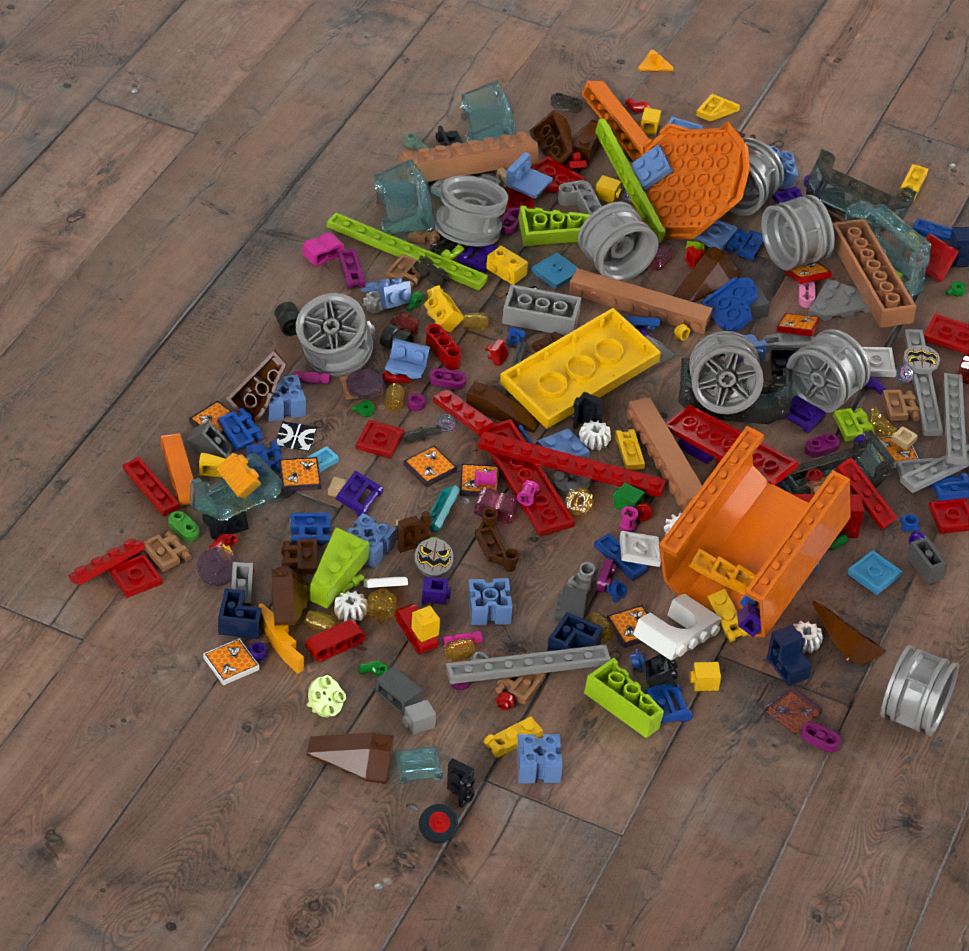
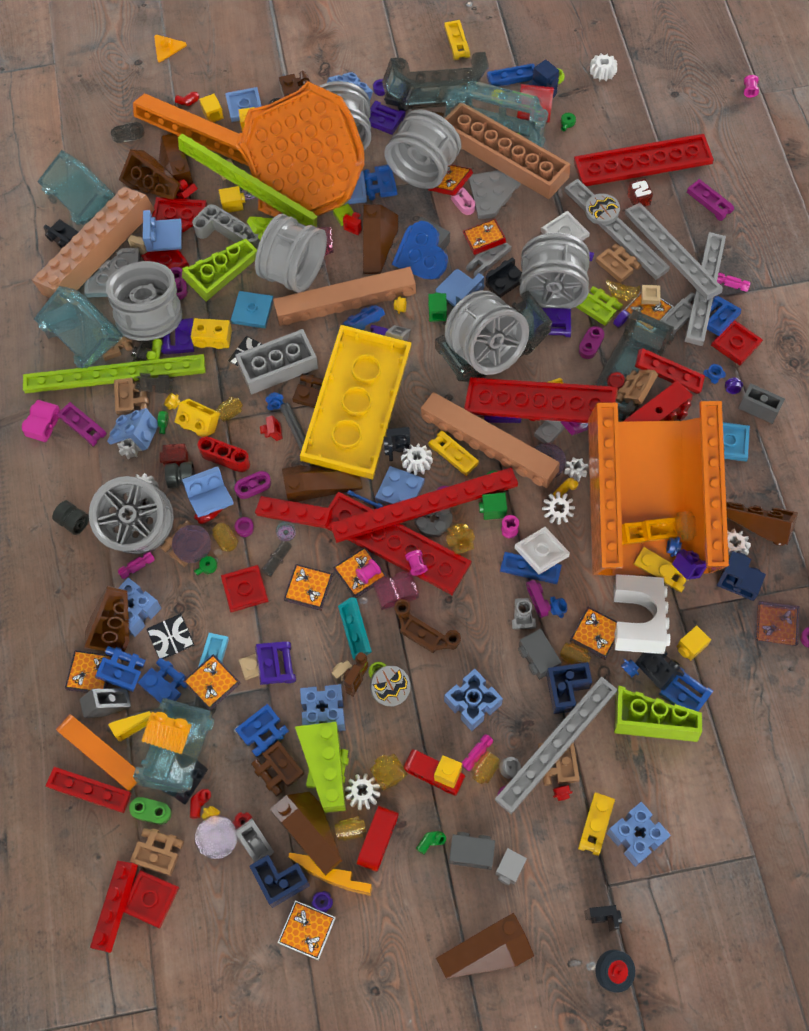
camera: 30 degrees left, 20 degrees up
(320, 691) = (427, 915): yellowish green plate -> none
(383, 582) = (374, 746): white tile -> none
(412, 141) = (29, 254): sand green plate -> none
(418, 760) = (540, 913): clear light blue plate -> none
(435, 590) = (412, 716): dark purple brick -> none
(646, 508) = (515, 509): red plate -> none
(652, 167) = (259, 158): medium blue plate -> none
(716, 107) = (252, 62): yellow wing -> none
(904, 374) = (598, 230): clear light blue tile -> none

